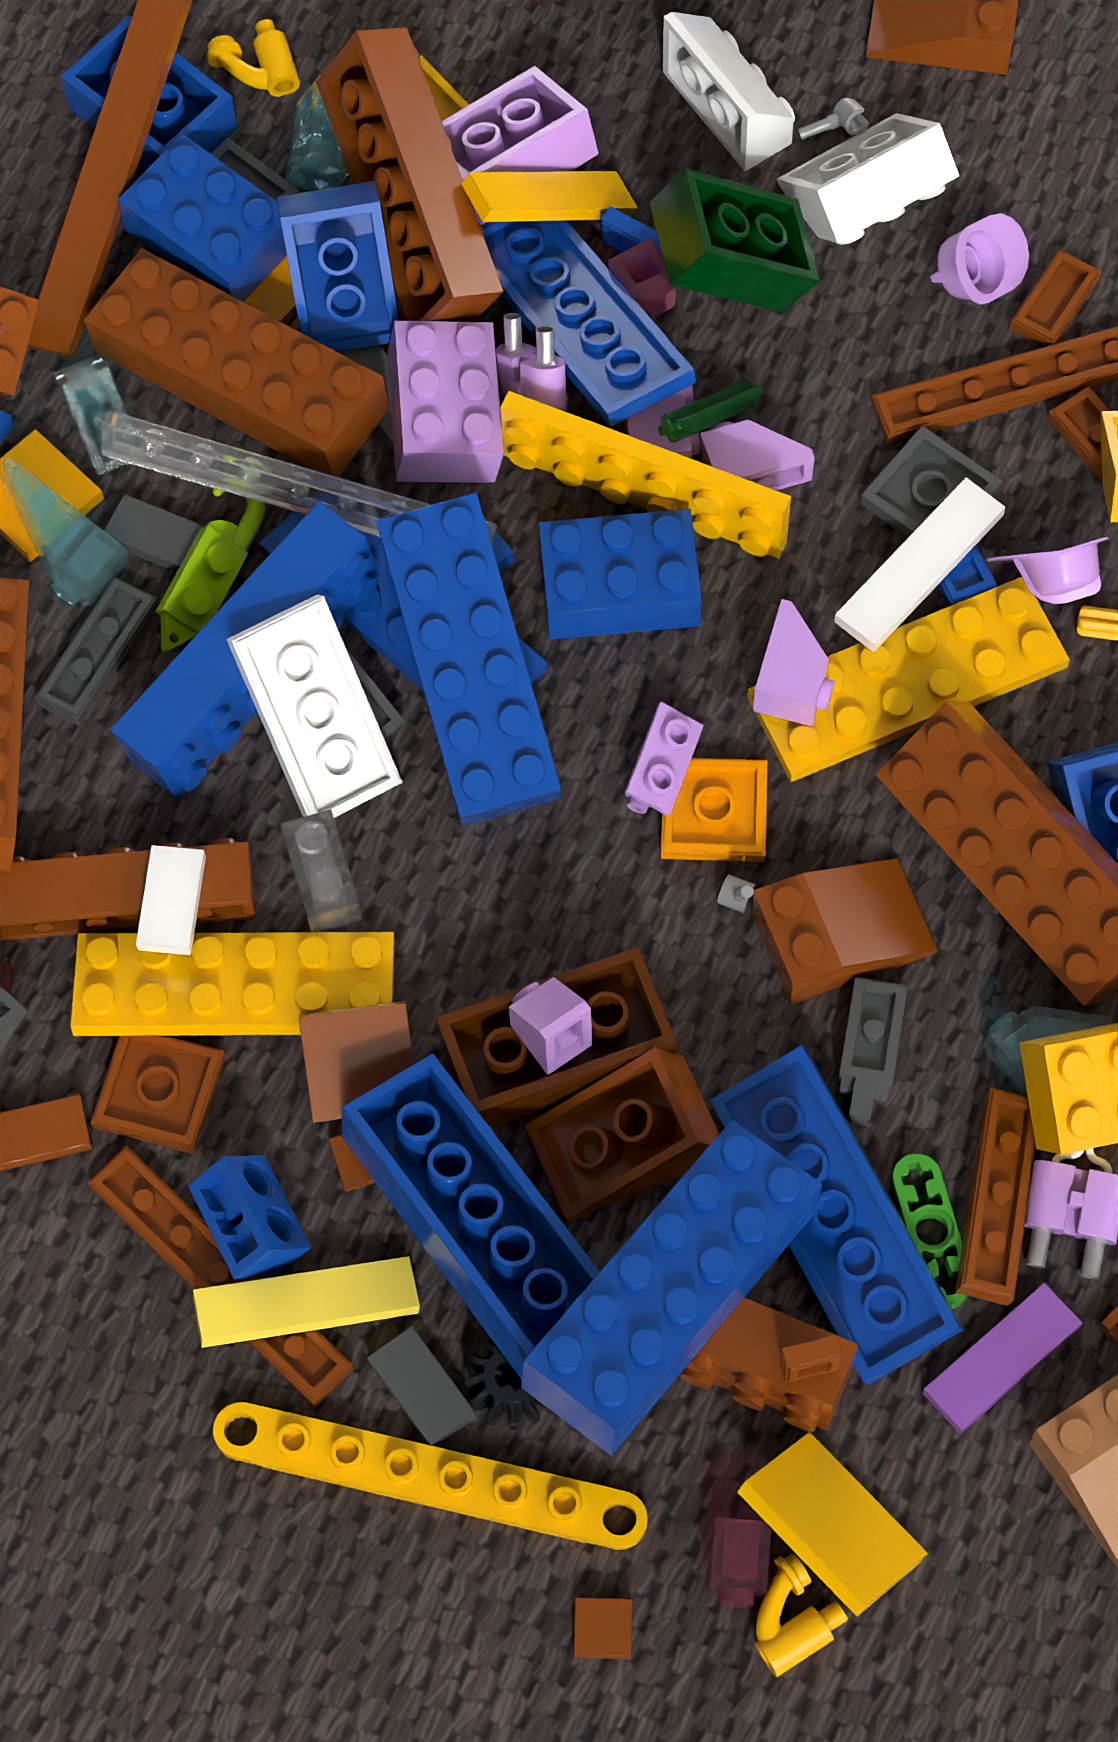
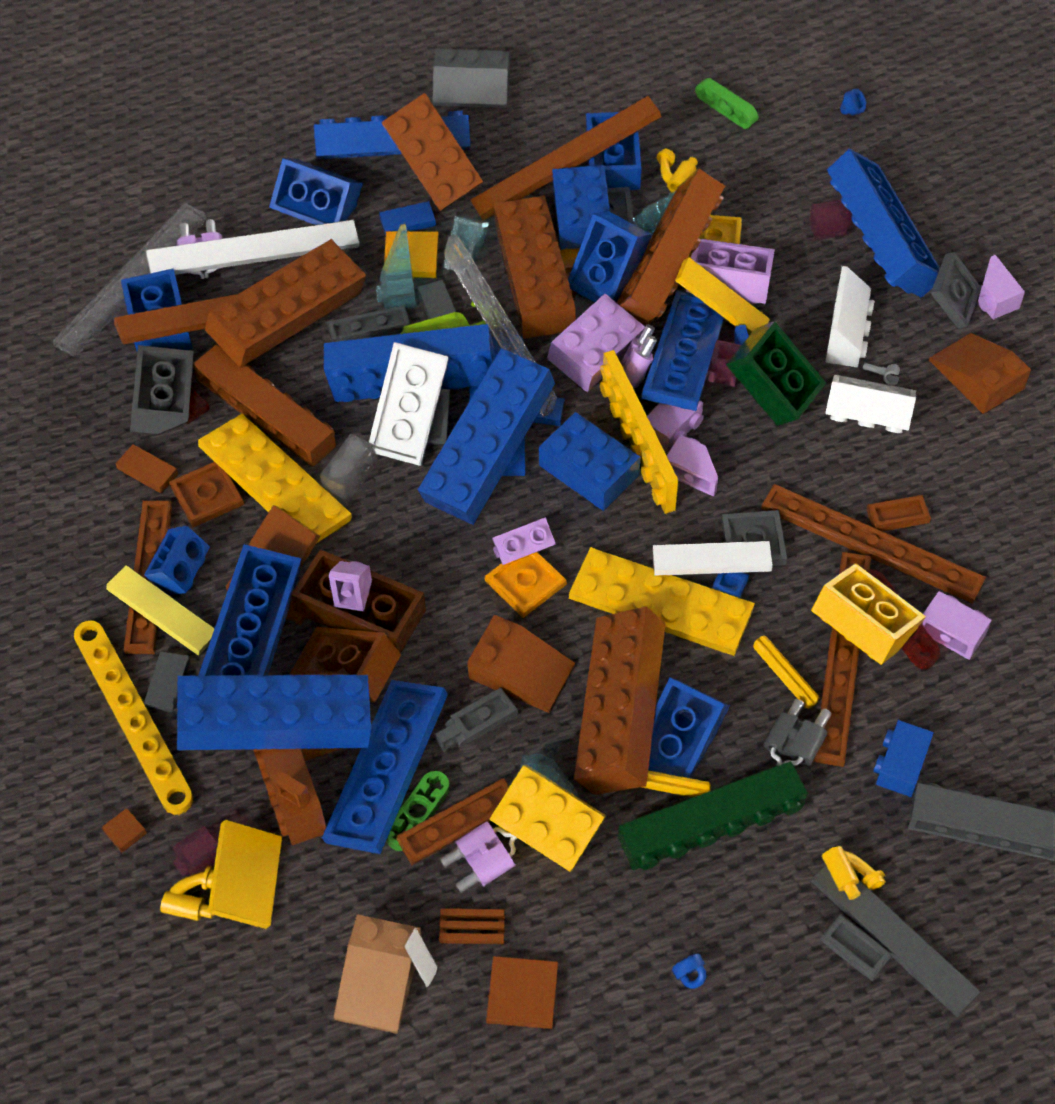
camera: 45 degrees right, 10 degrees down
(171, 900) = (280, 425): white tile -> none
(709, 410) = (694, 429): dark green axle -> none
(735, 893) = (496, 610): light grey hand -> none
(793, 671) = (608, 549): lavender slope -> none
(983, 260) = (882, 470): lavender piece -> none
(1002, 1358) = (387, 884): medium lavender tile -> none
(1061, 574) = (769, 613): lavender piece -> none

